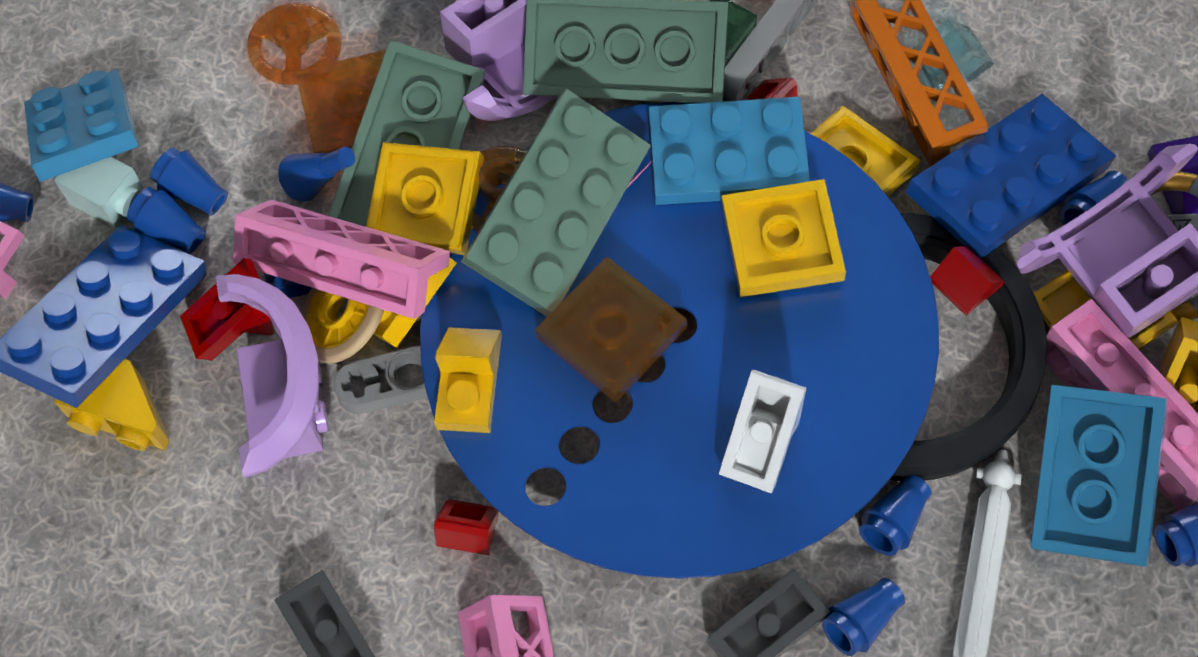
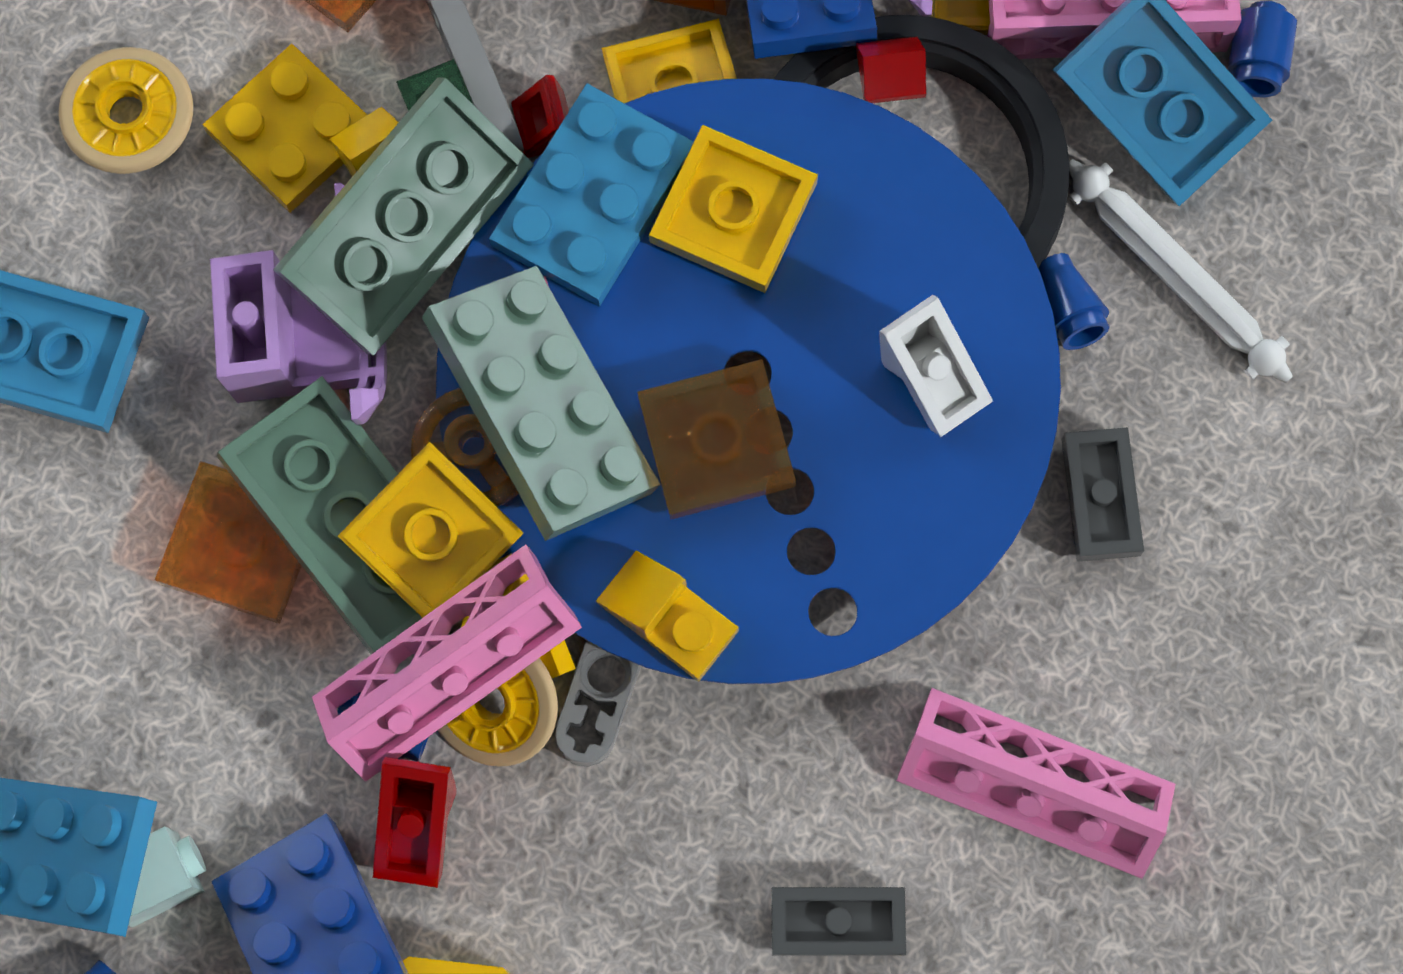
camera: 60 degrees left, 10 degrees up
(161, 218) = (243, 828): blue cone -> none
(187, 181) = (211, 776): blue cone -> none
(277, 379) = (549, 809): lavender piece -> none
(290, 31) = (87, 546): clear orange piece -> none
(307, 173) = (297, 640): blue cone -> none
(466, 526) = (810, 716): red slope -> none
(862, 617) = (1148, 401): blue cone -> none

